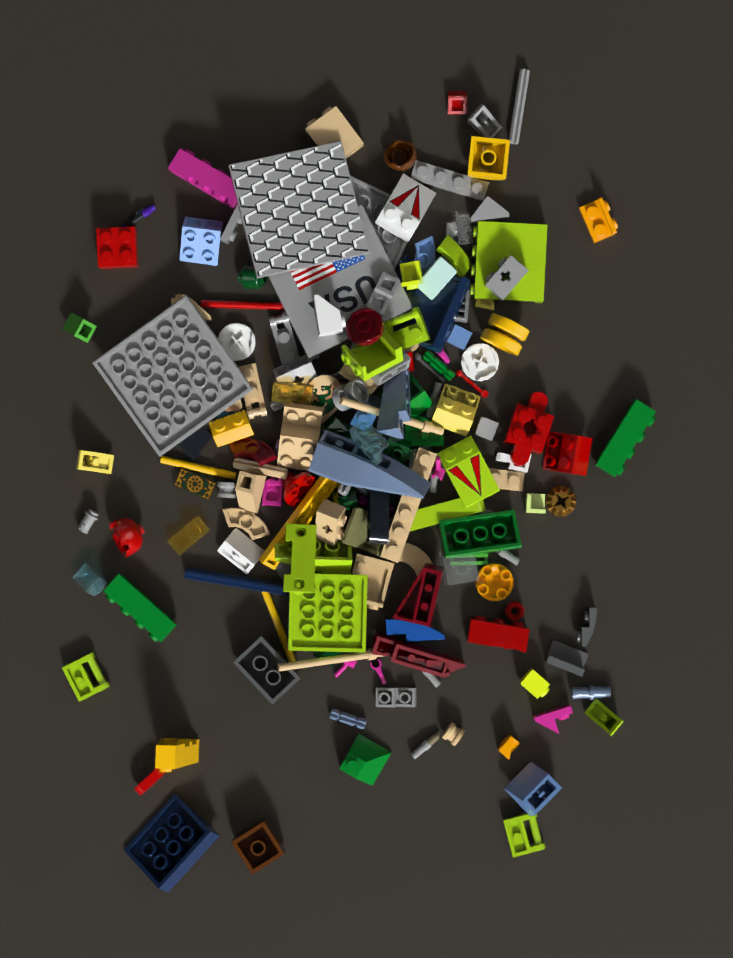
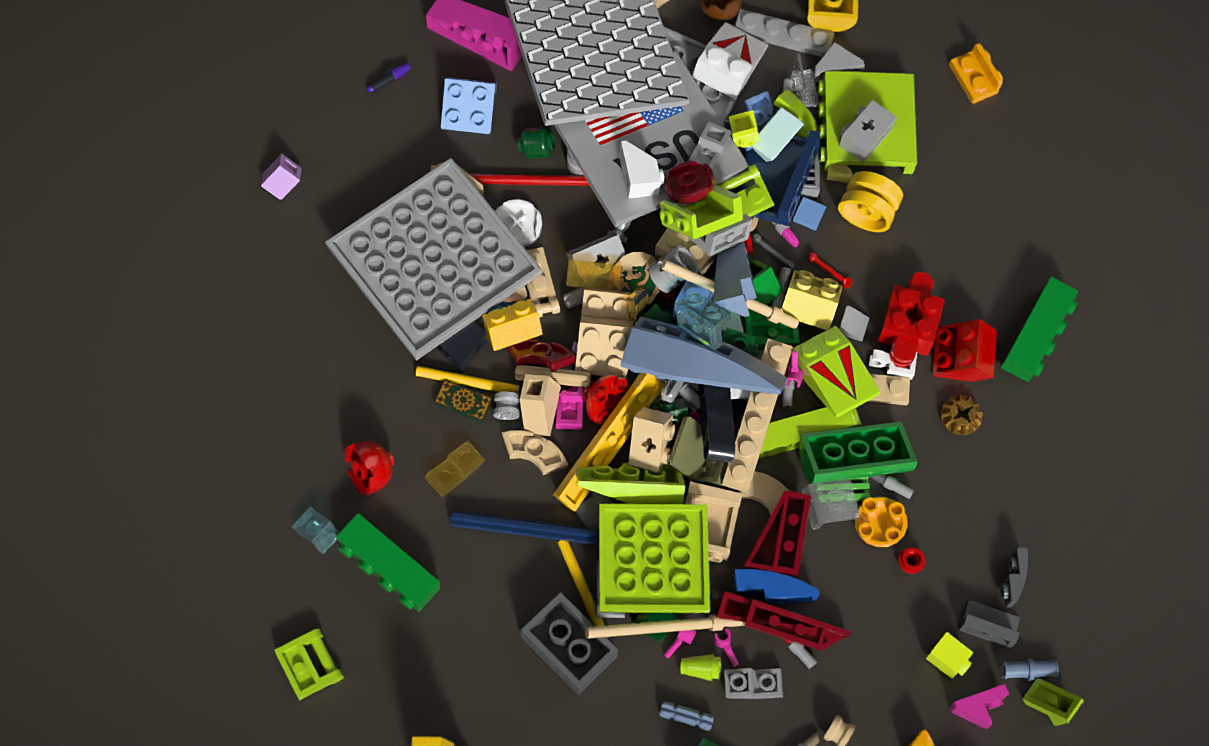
camera: 10 degrees left, 20 degrees down
(58, 302) = (281, 176): none -> lavender panel
(79, 327) = (308, 203): bright green brick -> none
(88, 520) = (315, 450): light grey pin -> none
(95, 461) = (326, 370): light yellow slope -> none
(117, 247) = (360, 110): red brick -> none
(230, 231) = (506, 90): light grey plate -> none
(241, 551) = (527, 487): white panel -> none
(284, 338) = (579, 216): light grey plate -> none
(302, 558) = (617, 482): lime brick -> none
(323, 418) = (637, 303): none -> clear yellow tile
(360, 685) = (702, 666): none -> lime cone
(438, 365) = (784, 247): green axle -> none
(480, 362) = (838, 243): white tile -> none
(498, 633) = (894, 588): red wedge -> none
(534, 503) = (927, 417): yellowish green panel -> none

